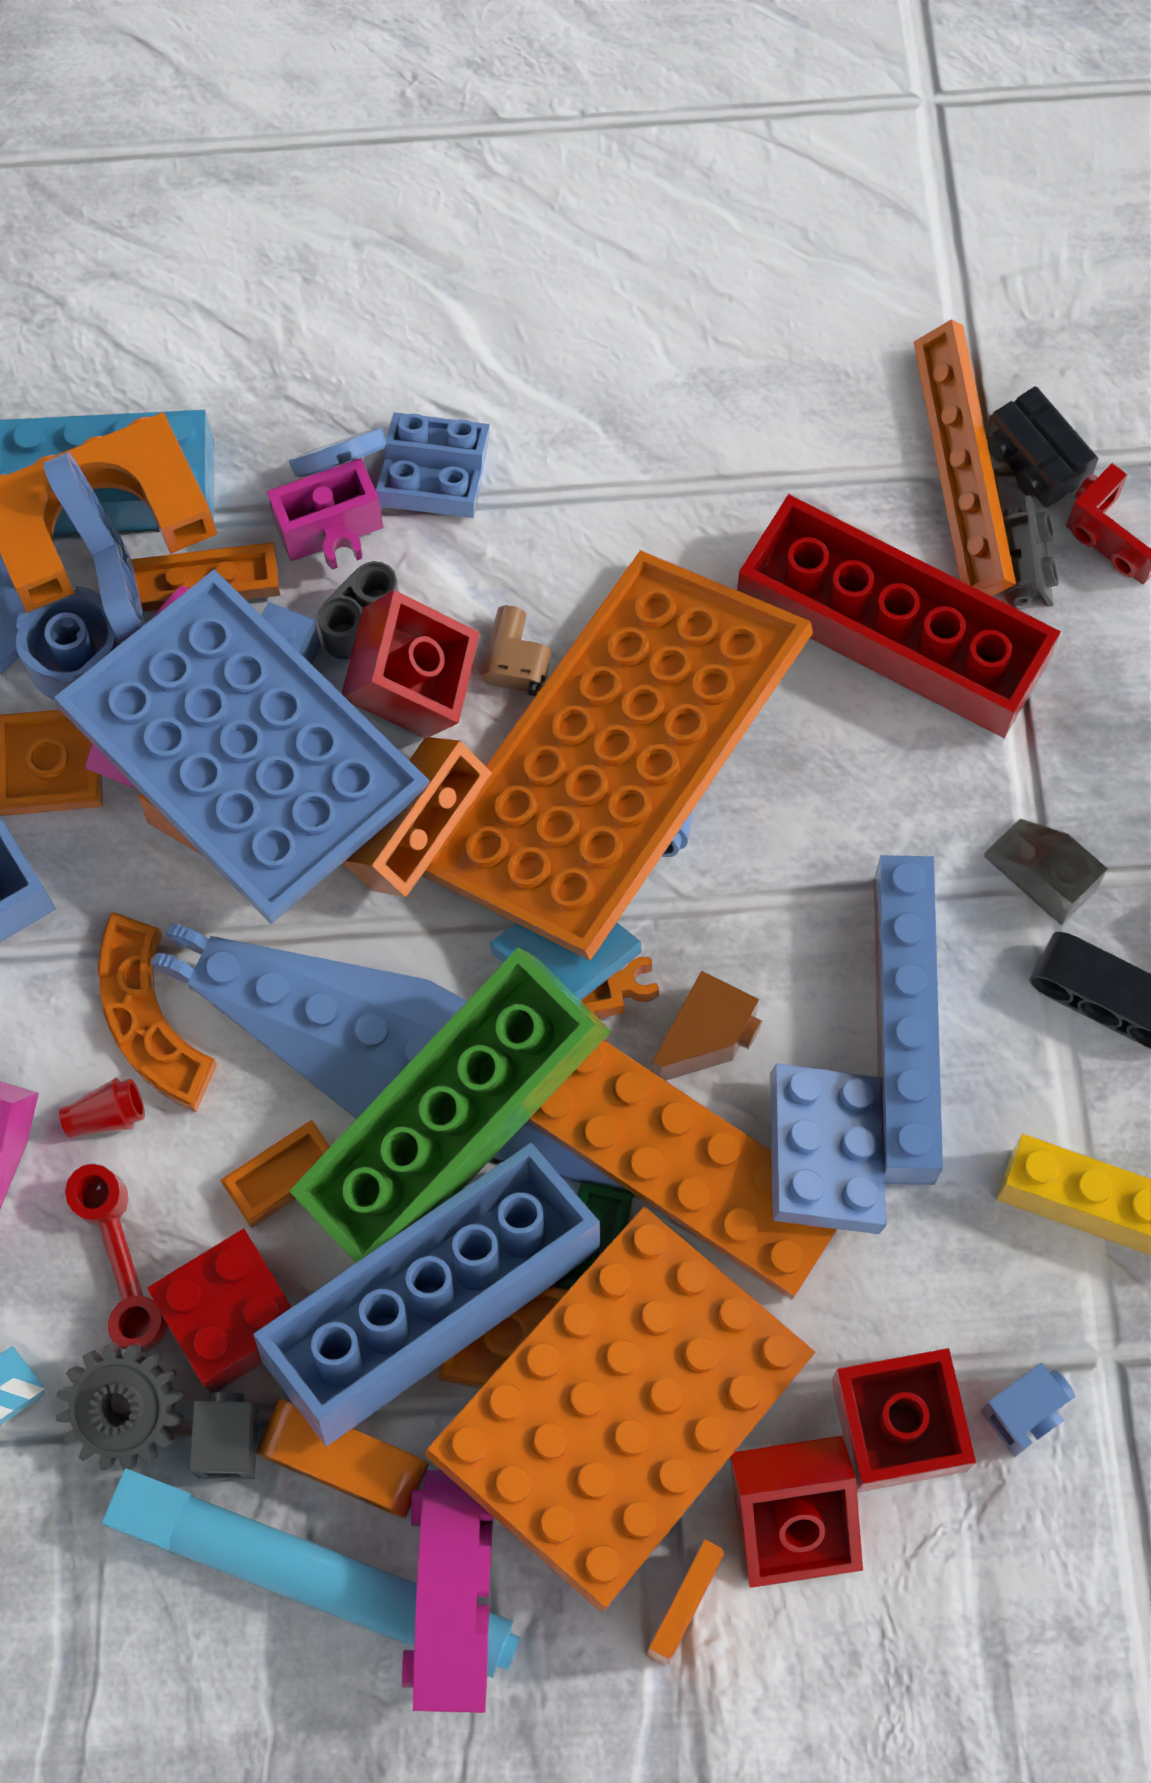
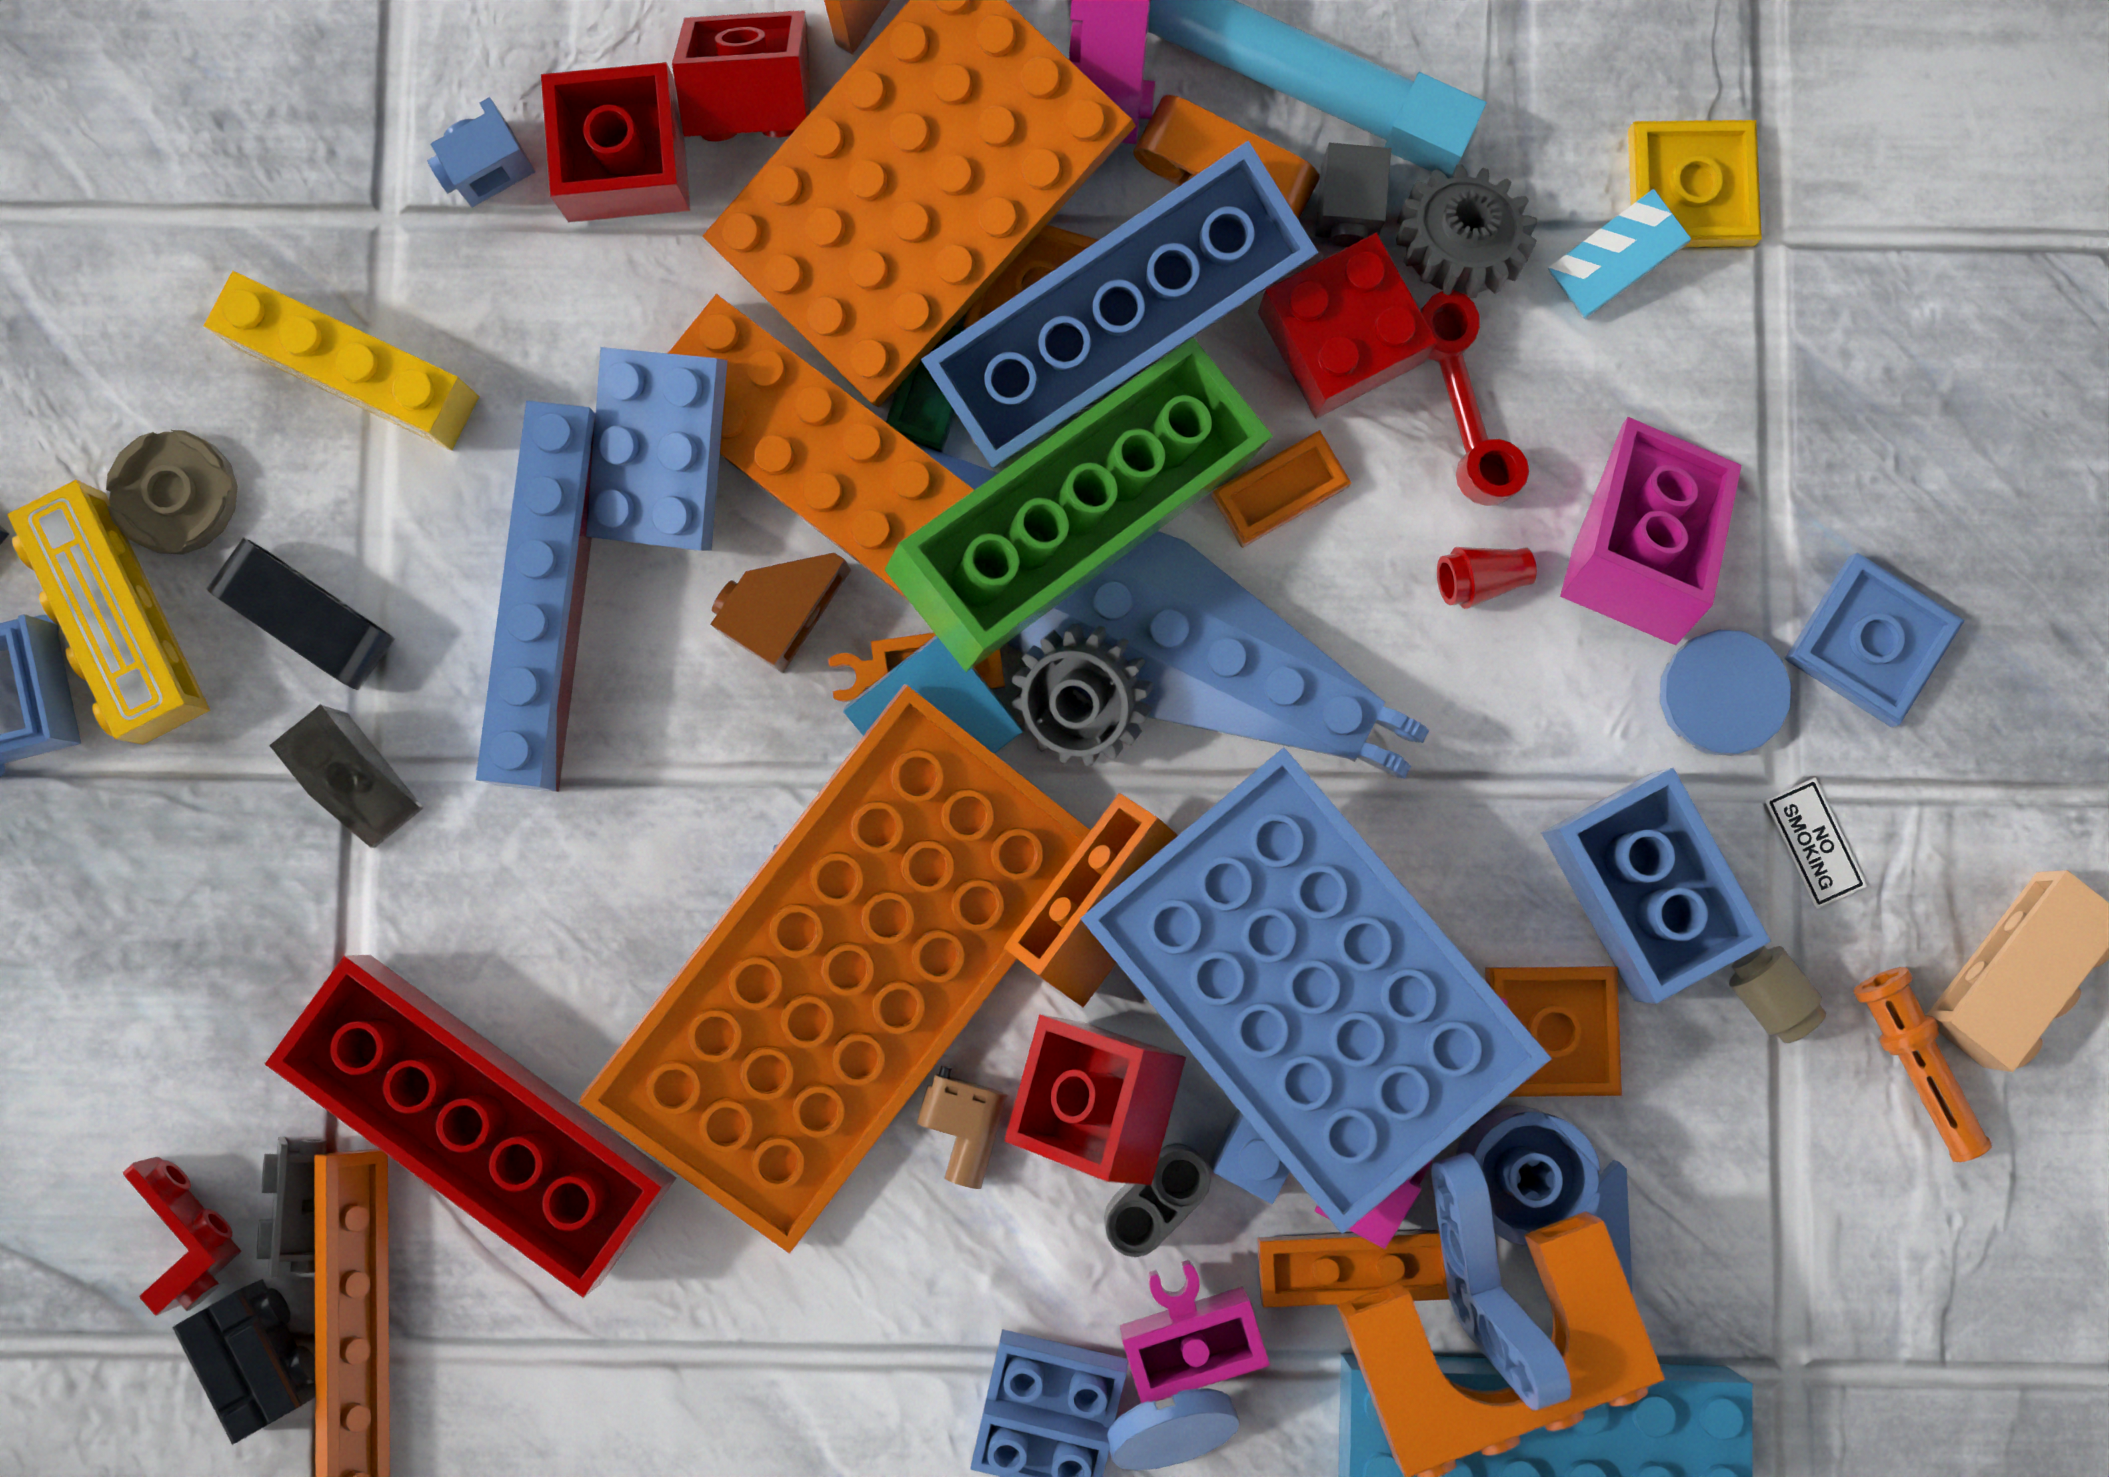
camera: 175 degrees left, 15 degrees up
(136, 1018) = (1445, 689): orange tile -> none
(437, 969) = (1099, 669): none -> dark grey gear

